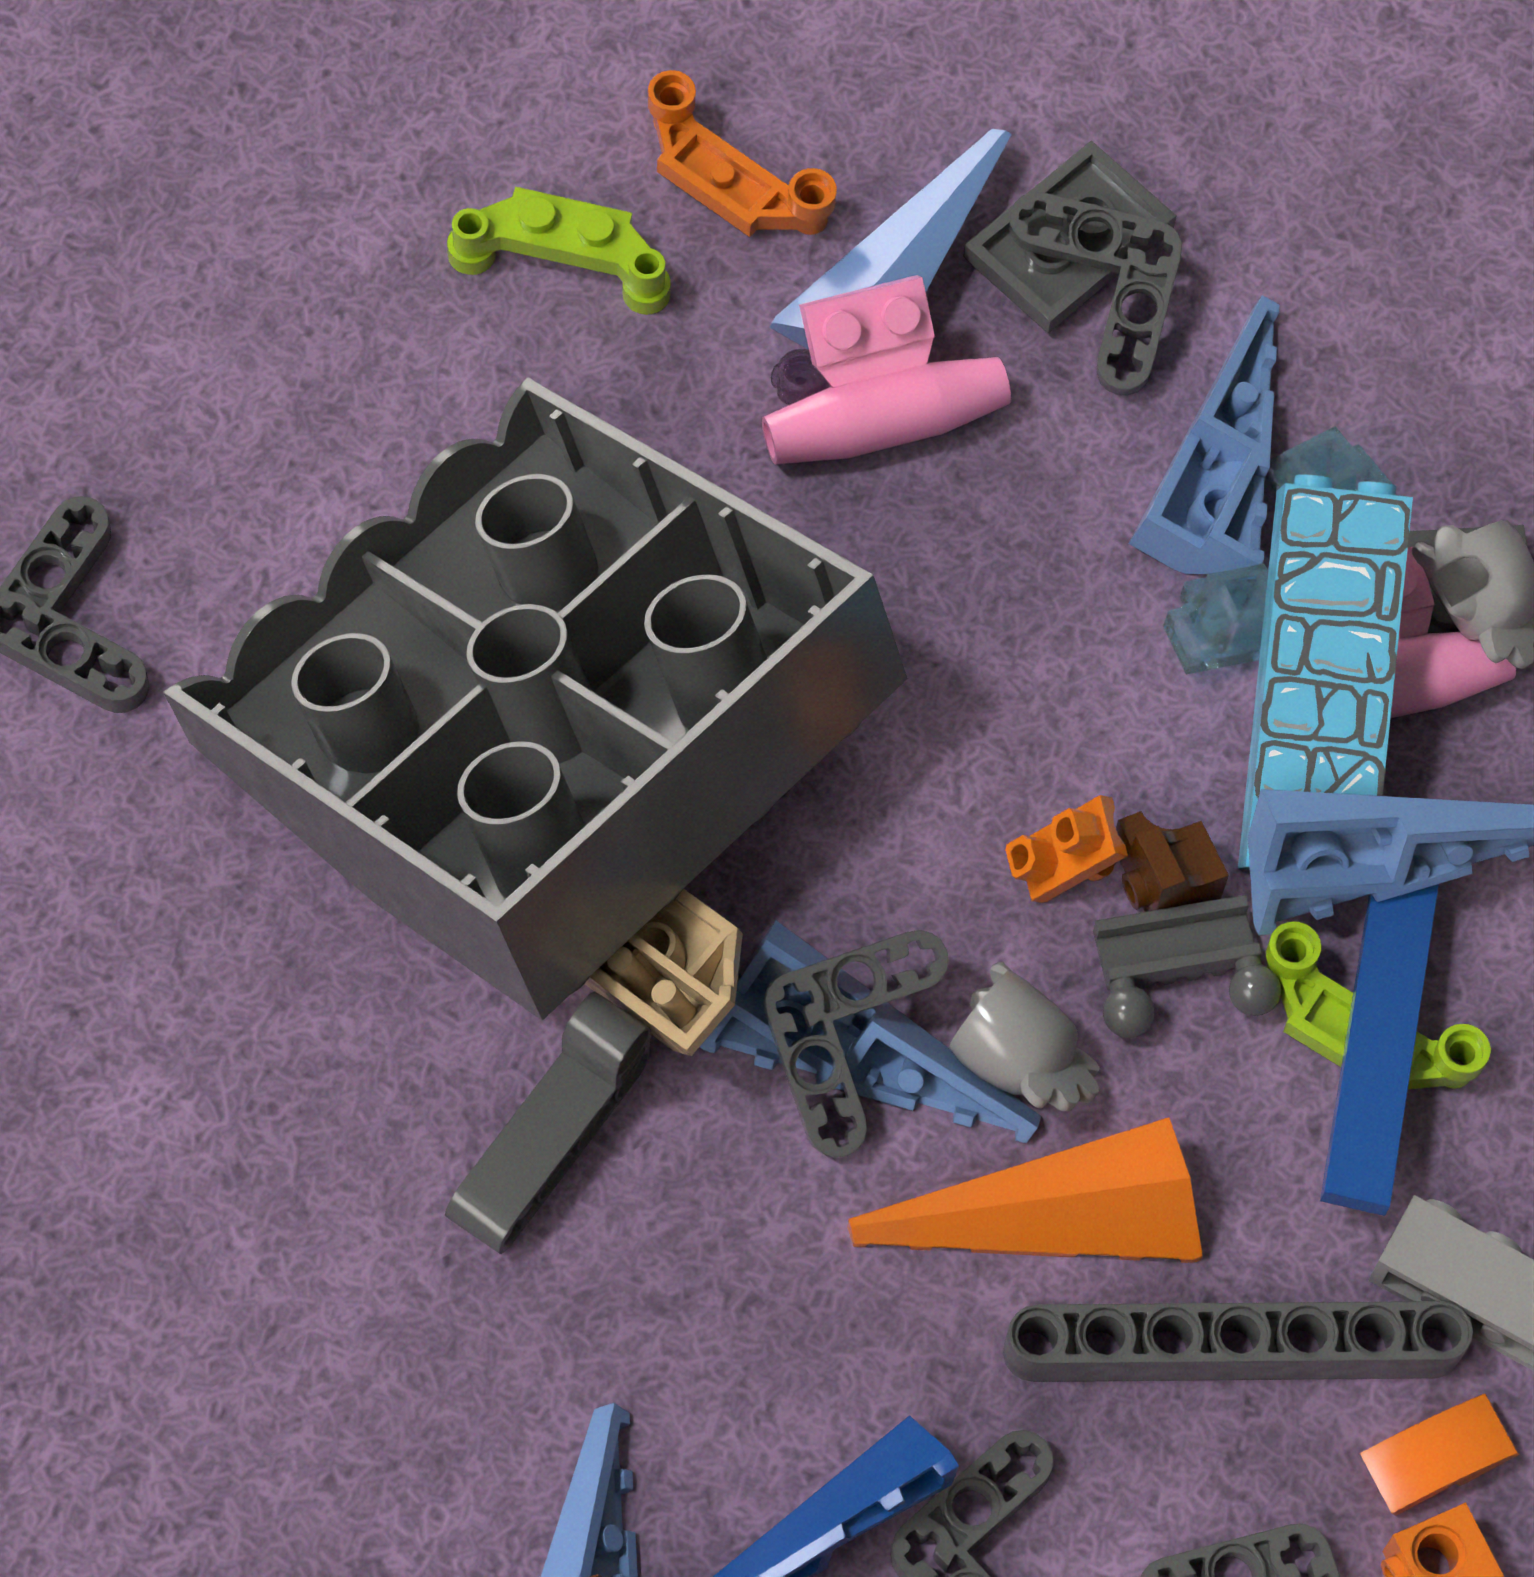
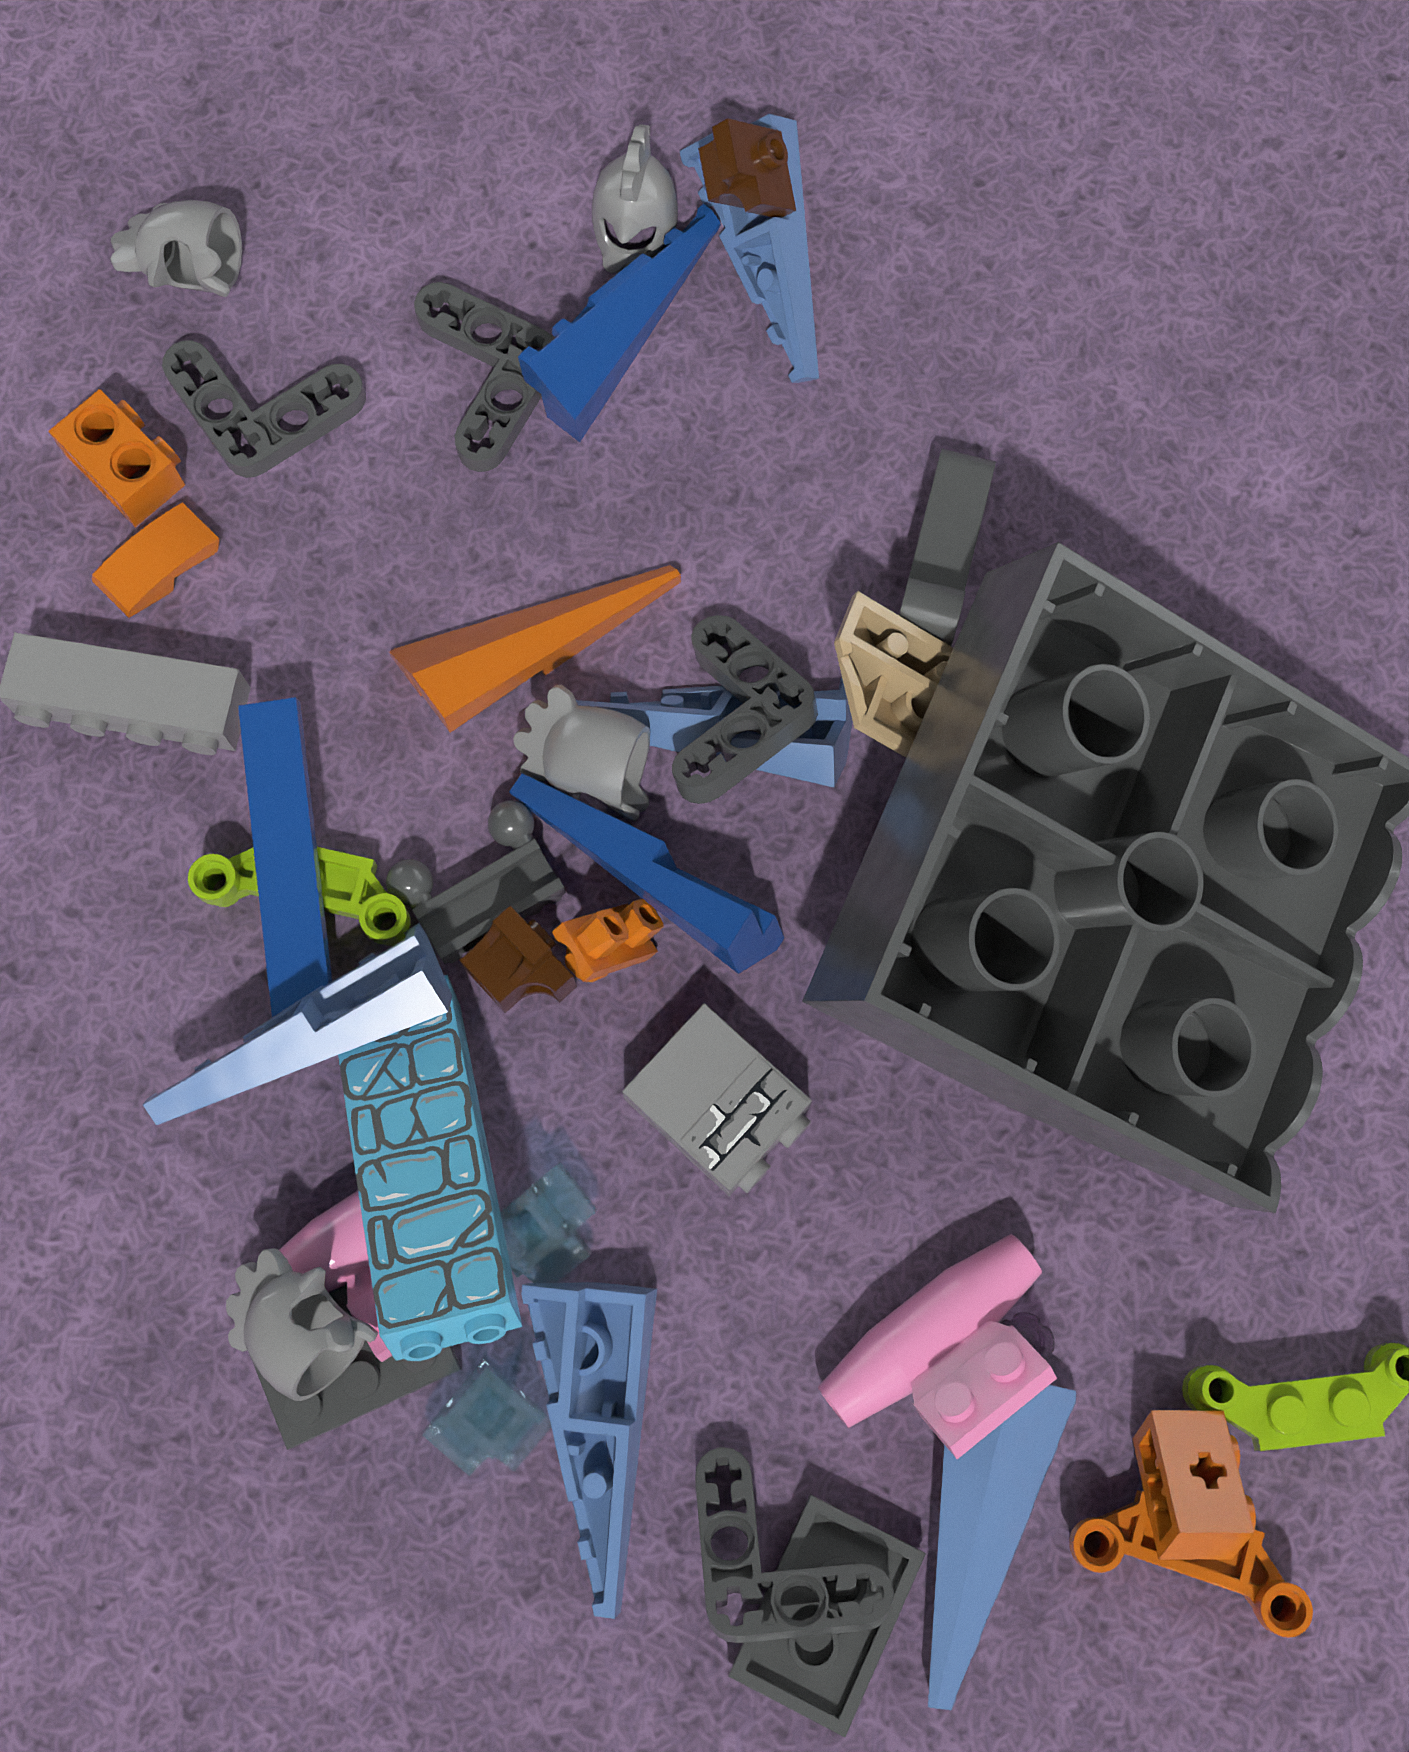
camera: 165 degrees right, 10 degrees up
(713, 235) = (1193, 1485): none -> orange brick
(979, 864) = (714, 918): none -> blue wedge
(1011, 672) = (719, 1101): none -> light grey brick
(1265, 1326) = (357, 560): dark grey beam -> none

